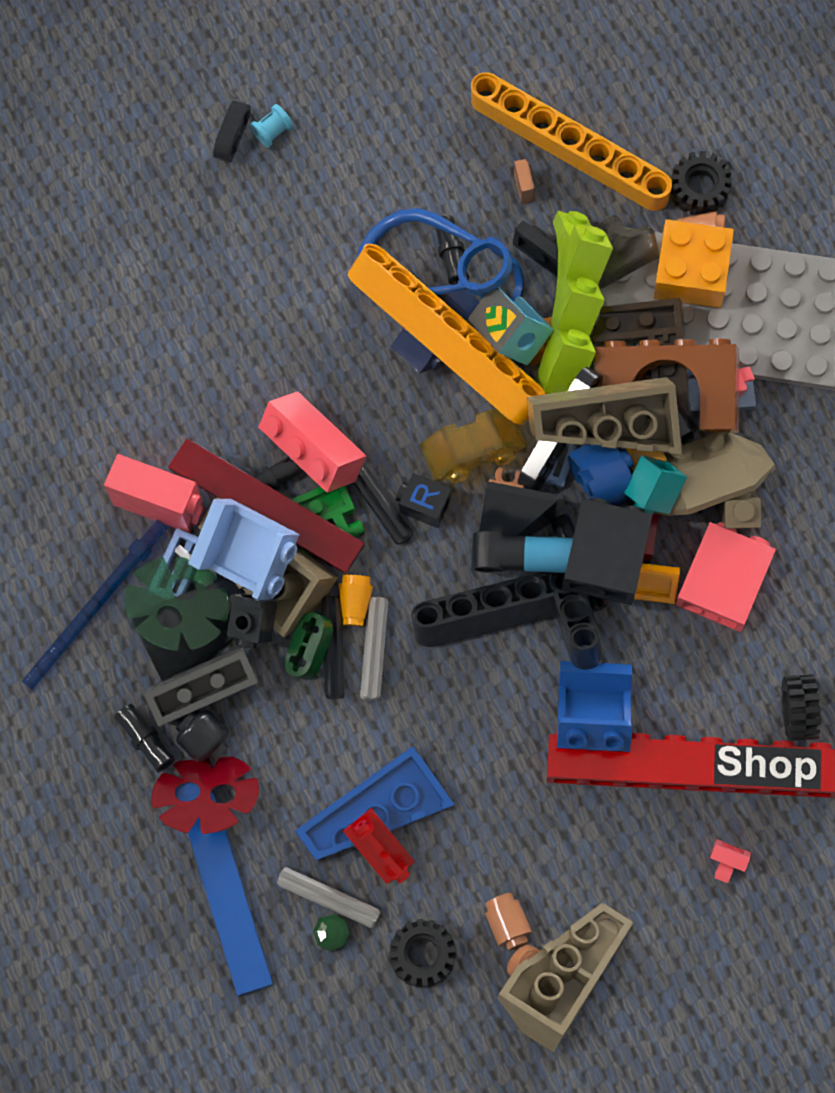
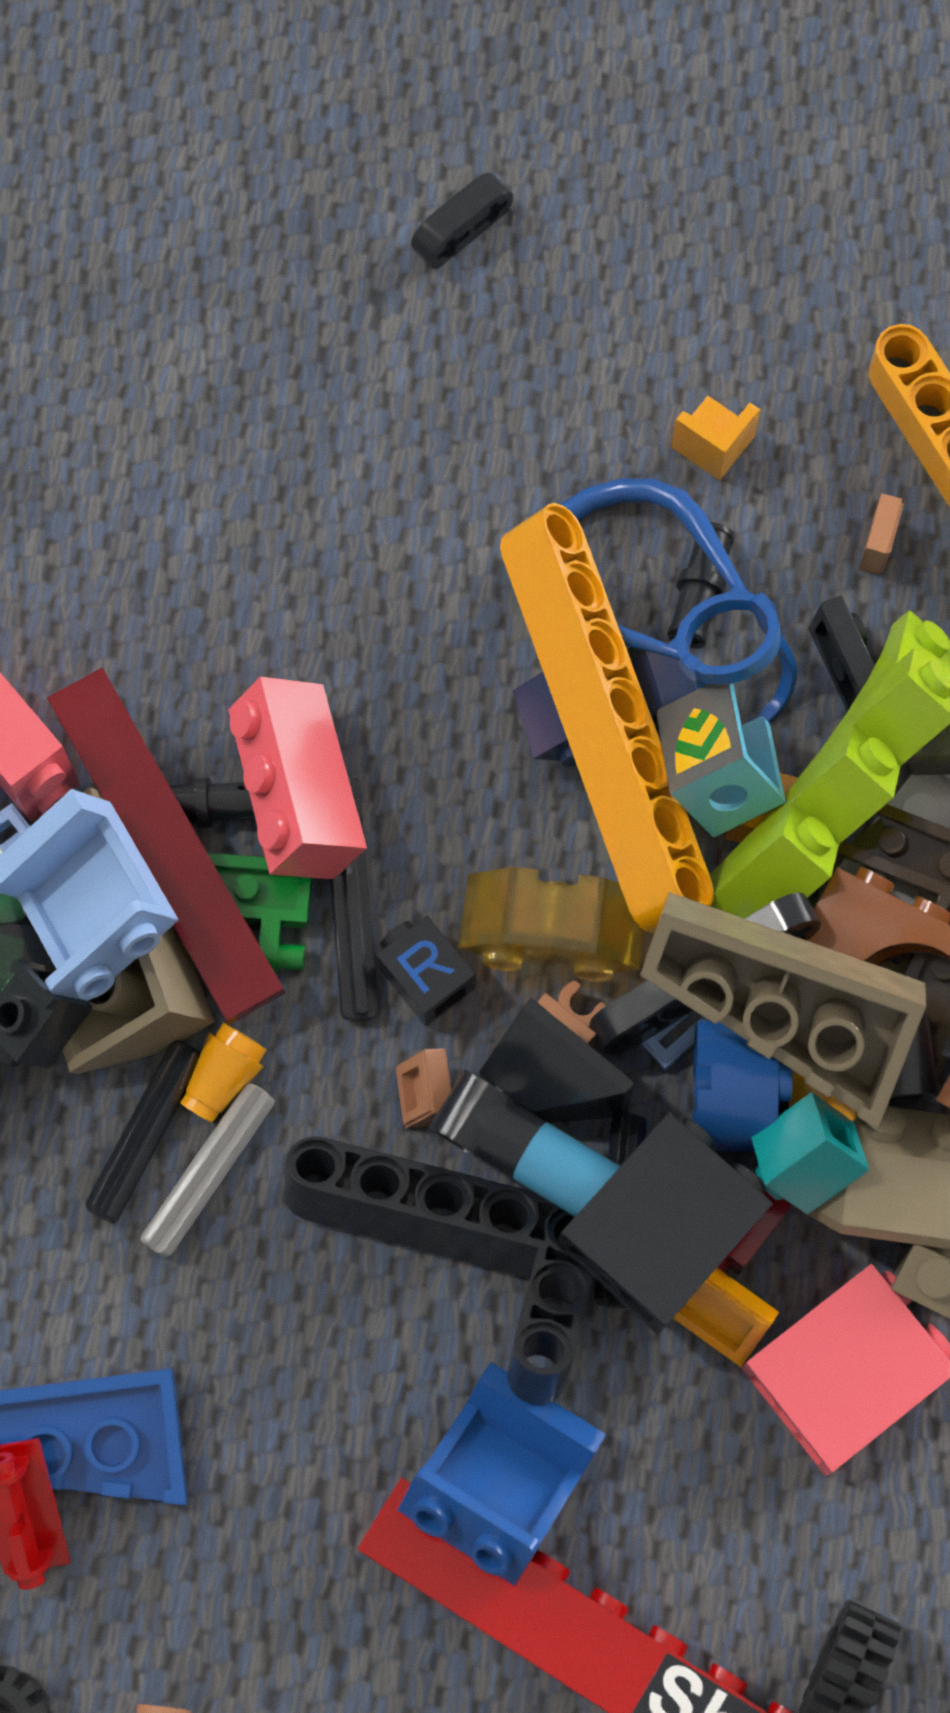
camera: 25 degrees right, 0 degrees up
(271, 125) = (529, 243): medium azure bush -> none
(308, 646) = (103, 1108): dark green beam -> none
(416, 174) = (714, 435): none -> light orange panel
(455, 555) = (423, 1086): none -> nougat tile

